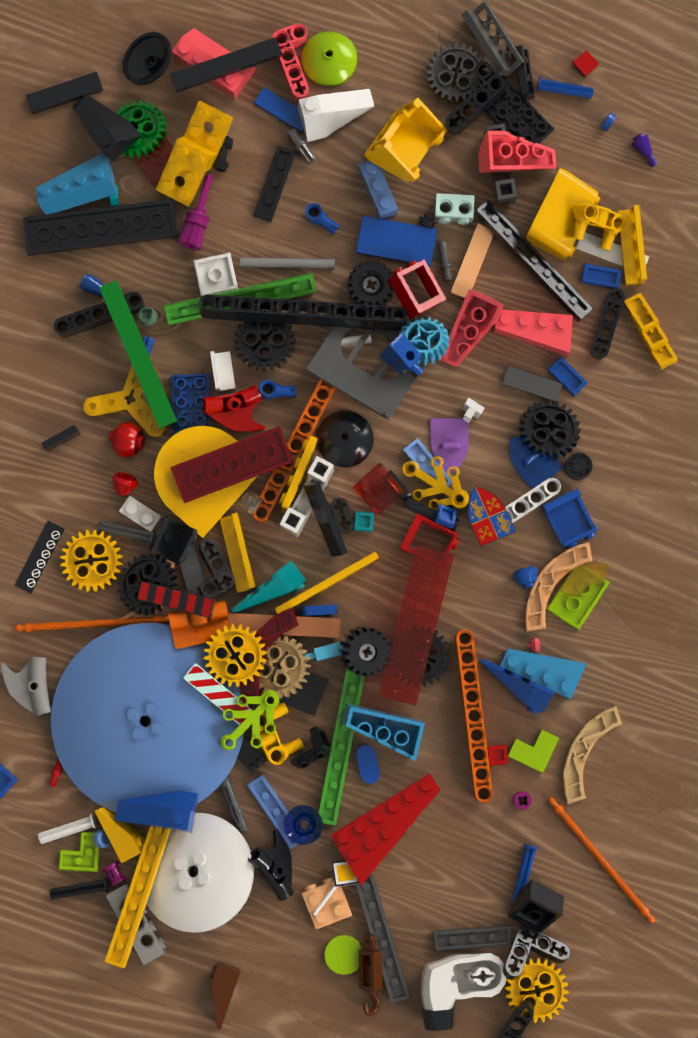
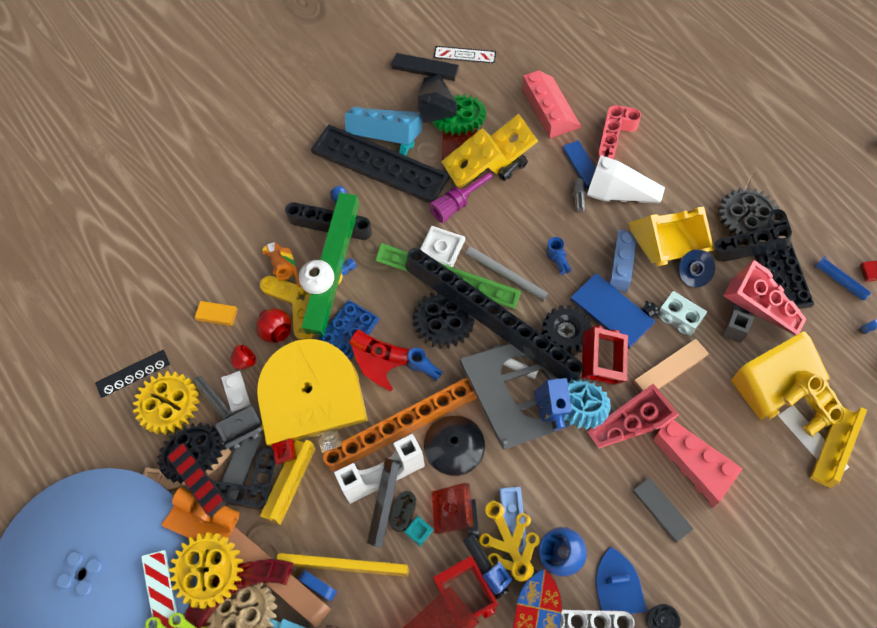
camera: 40 degrees right, 20 degrees down
(21, 685) = (29, 472): light grey pin -> none
(29, 627) = (75, 424): orange hose -> none
(60, 438) = (224, 291): black tile -> none
(67, 461) = (216, 313): none -> light orange tile
(90, 379) = (282, 261): none -> orange animal
(91, 53) = (465, 54): none -> sticker
(144, 386) = (316, 284): none -> white piece
(147, 58) = (502, 73): black dish -> none
(147, 316) = (364, 244): sand green tile -> none
(219, 533) = (284, 451): none -> red tile
(222, 371) = (390, 321): white panel -> none
(226, 65) = (559, 102): black tile -> none
(231, 464) = (336, 395): dark red plate -> none
(274, 184) = (538, 211): black tile -> none
(281, 584) = (304, 533): teal wedge -> none
(294, 480) = (386, 447): yellow wing -> none
(329, 70) = (642, 156): lime dish -> none
(443, 251) = (644, 354): dark grey piece -> none
(449, 159) = (704, 268): none -> dark blue dish
(449, 441) = (549, 509): medium lavender shield -> none
(472, 410) = (589, 495): white tile -> none
(472, 468) = (553, 551): none -> blue wheel
(487, 42) = (791, 205): dark grey fence -> none
(525, 74) = (812, 244): black hinge -> none
(533, 260) = (731, 402): black plate -> none
(550, 445) = (645, 577): black gear -> none
(567, 376) = (703, 525): blue tile -> none
(601, 276) = (790, 454): blue tile -> none
(609, 324) = (774, 504): black beam -> none
(650, 331) = (814, 537): yellow slope -> none

